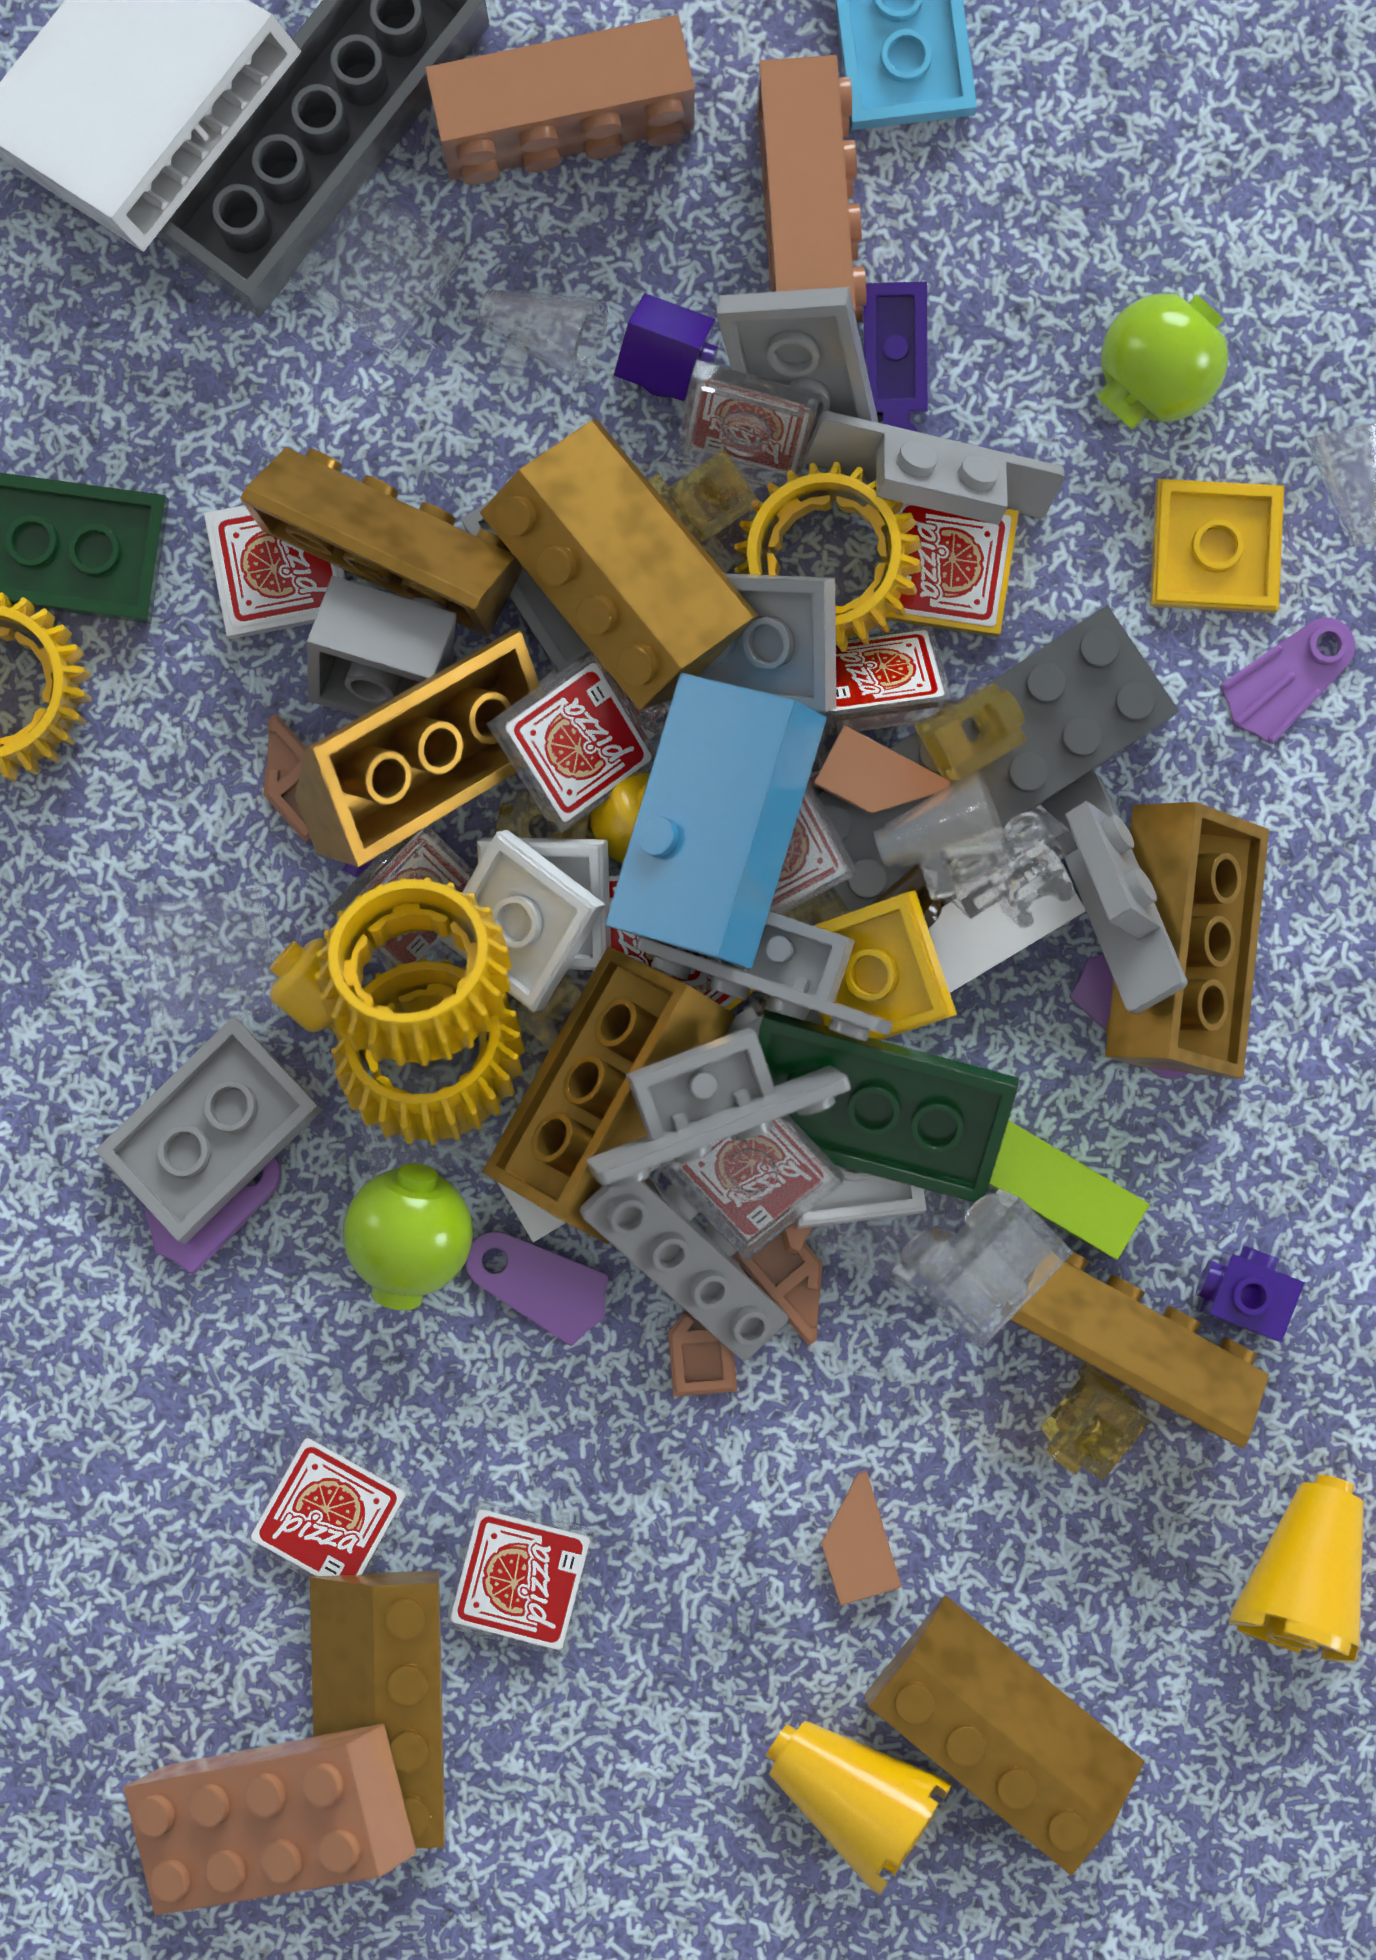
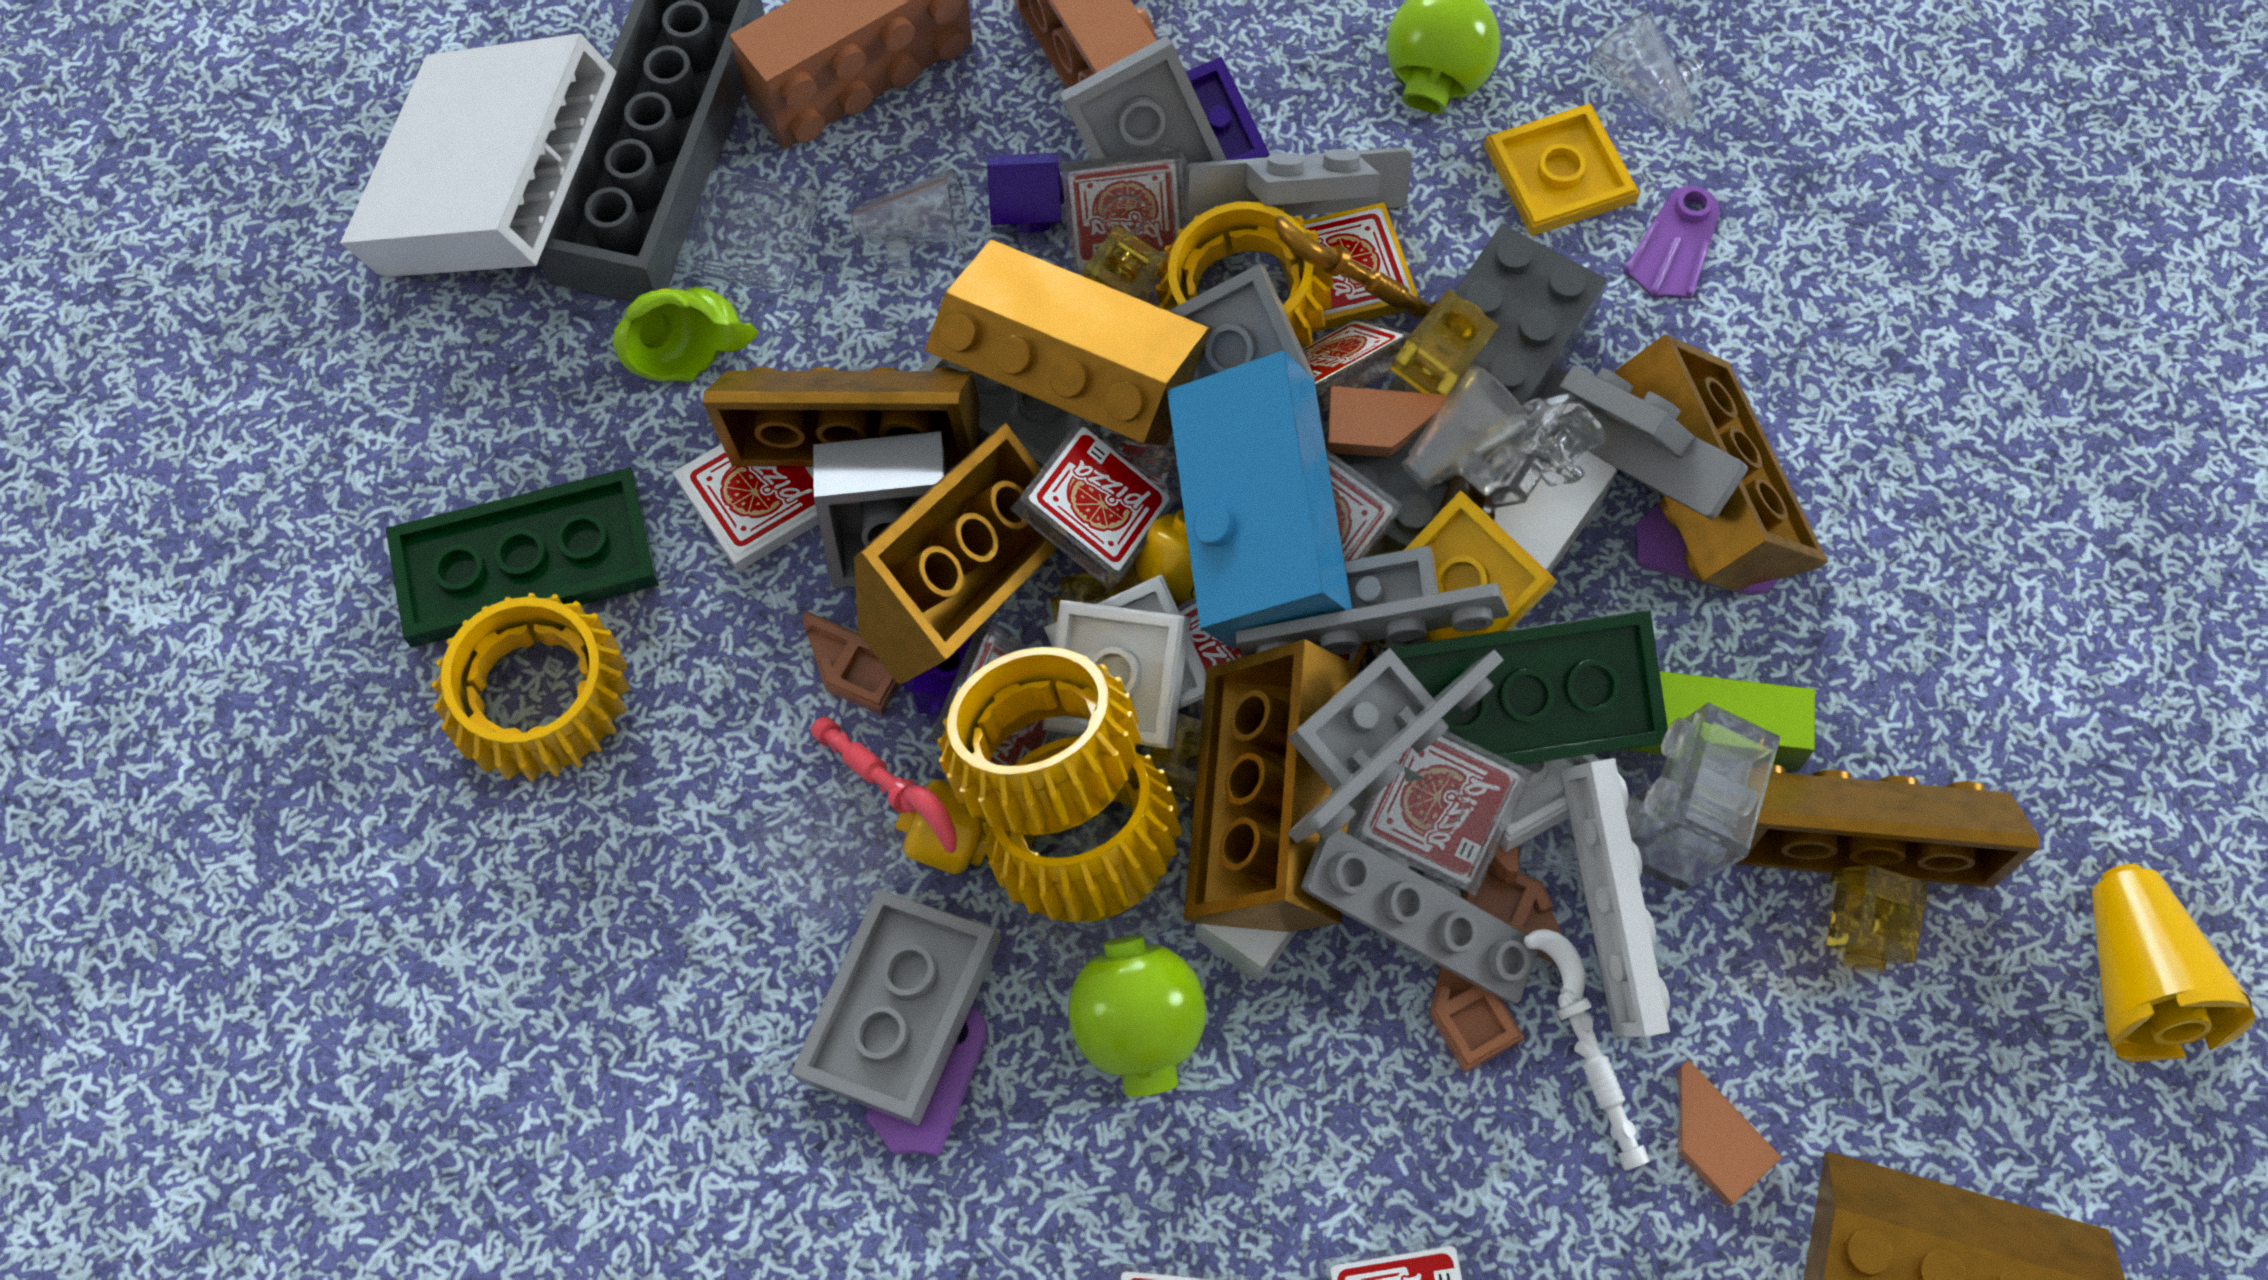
camera: 20 degrees left, 20 degrees down
(265, 366) = (678, 333): none -> lime hair
(268, 902) = (903, 793): none -> coral piece
(541, 1285) = (1287, 1020): medium lavender piece -> none
(785, 1446) = (1597, 1066): none -> white piece
(863, 1333) = (1615, 900): none -> white plate
(919, 587) = (1337, 261): none -> pearl gold piece
(1249, 1292) = (1946, 739): dark purple brick -> none

